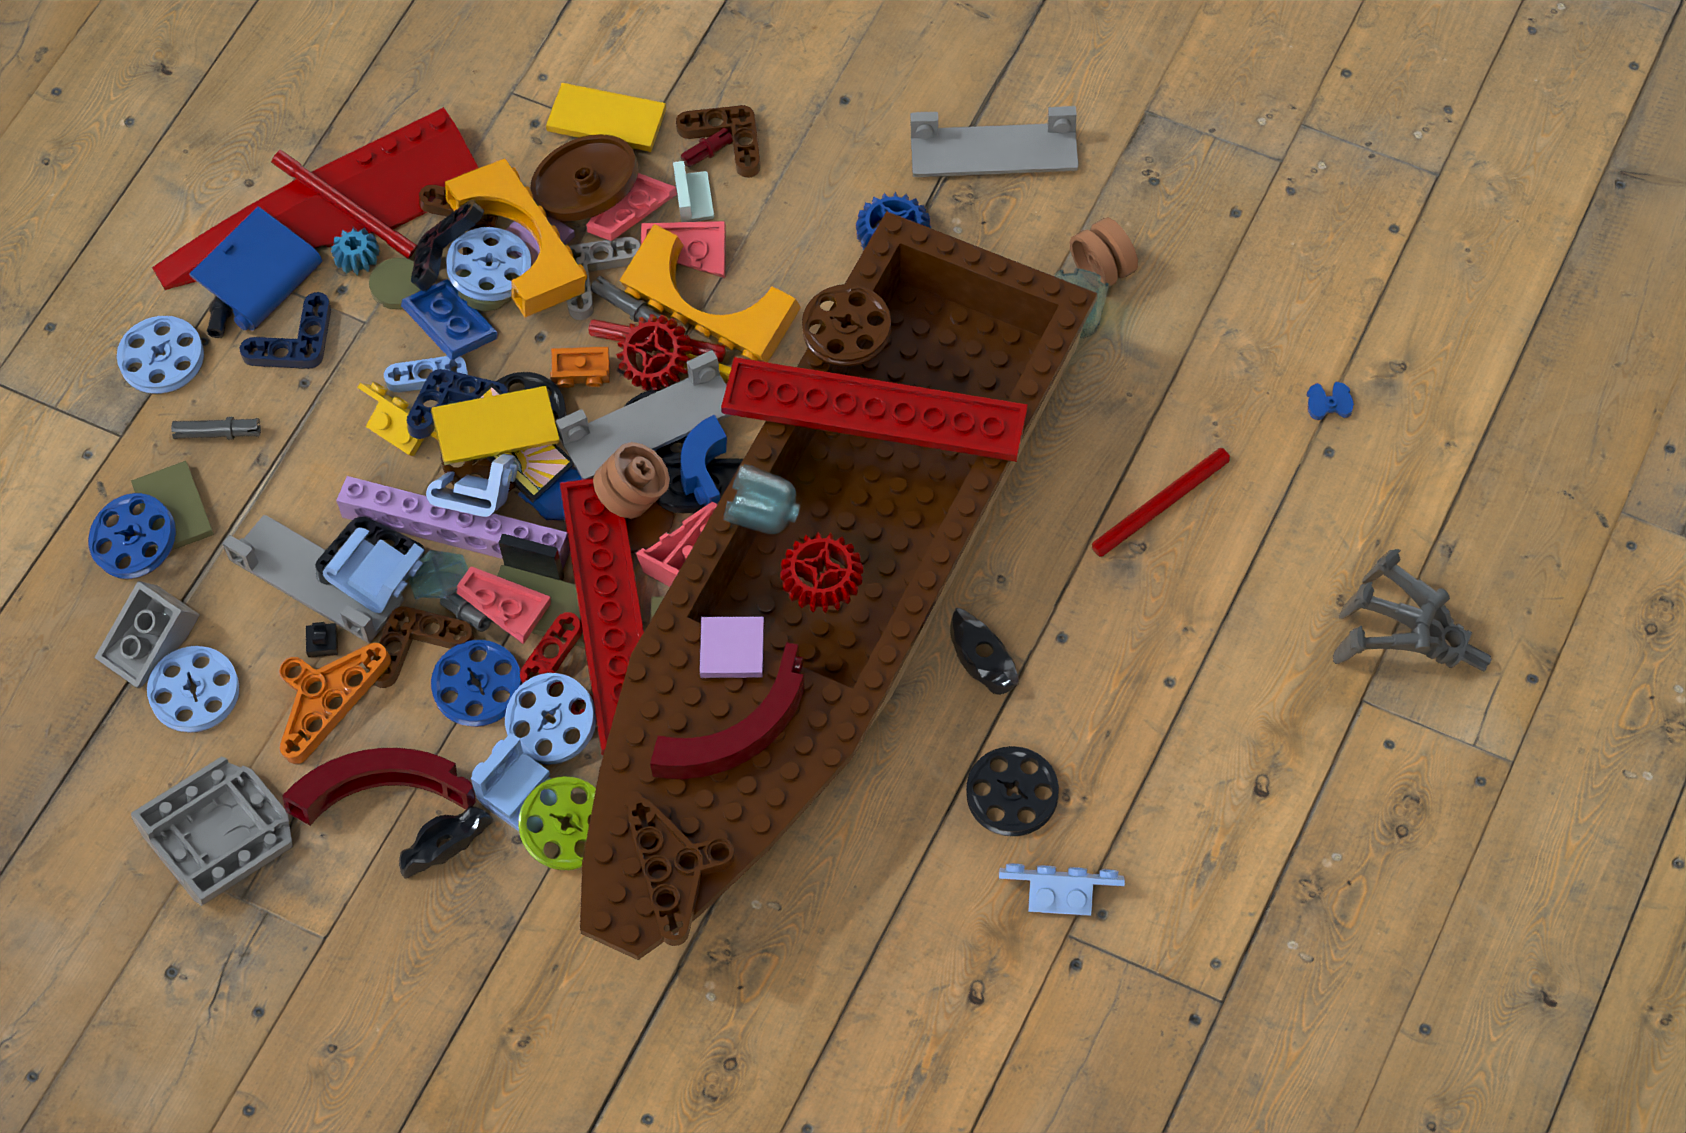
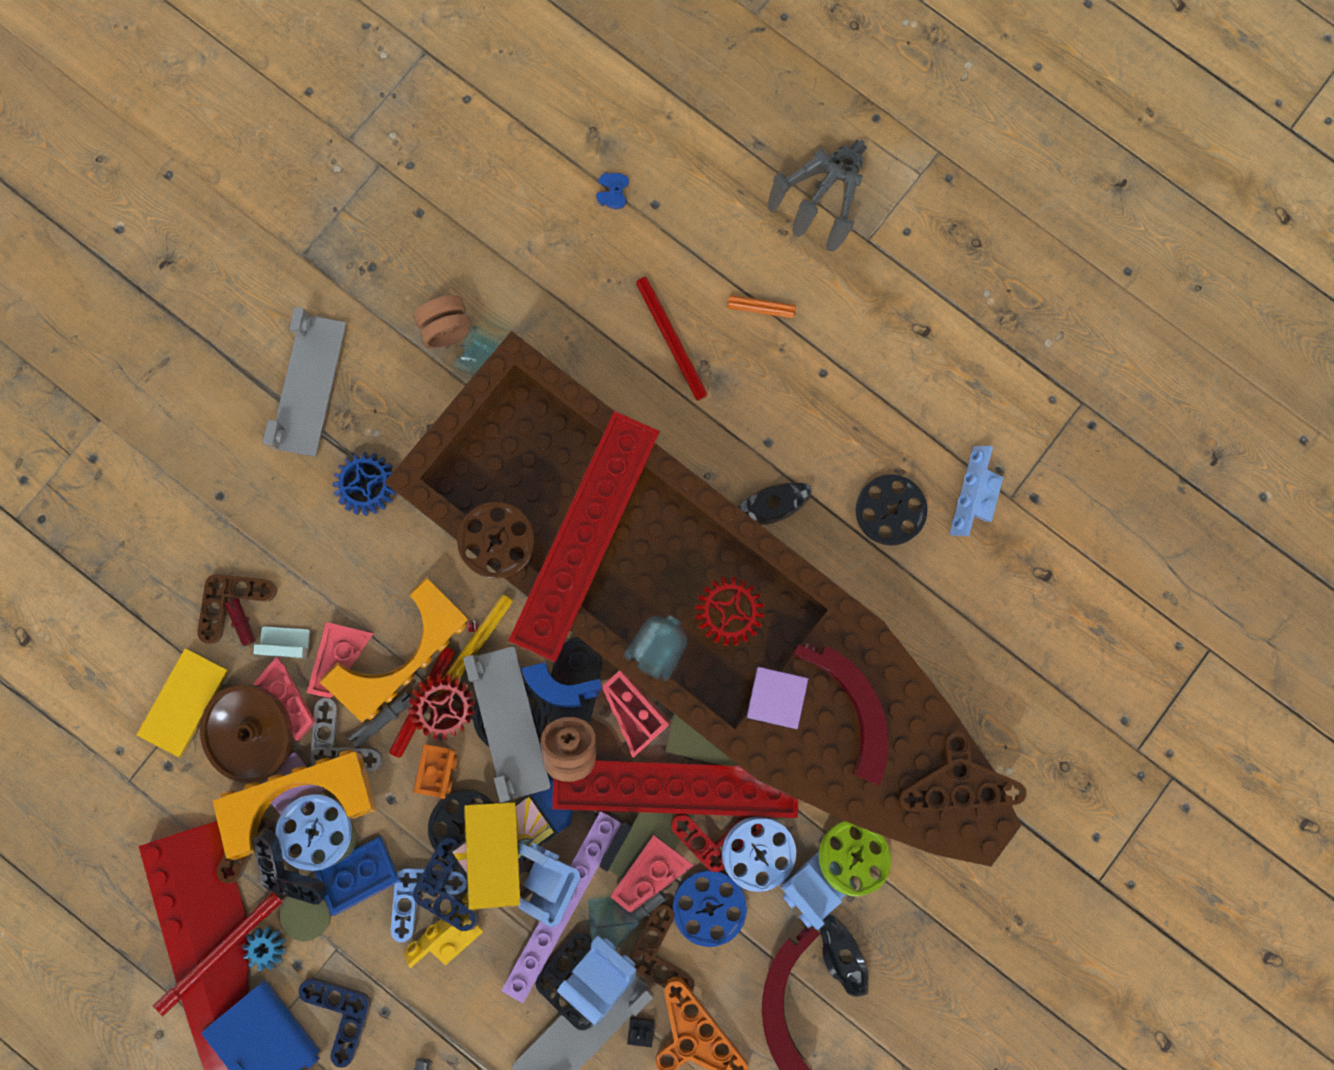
camera: 85 degrees left, 20 degrees up
(1233, 592) = (761, 306): none -> orange axle

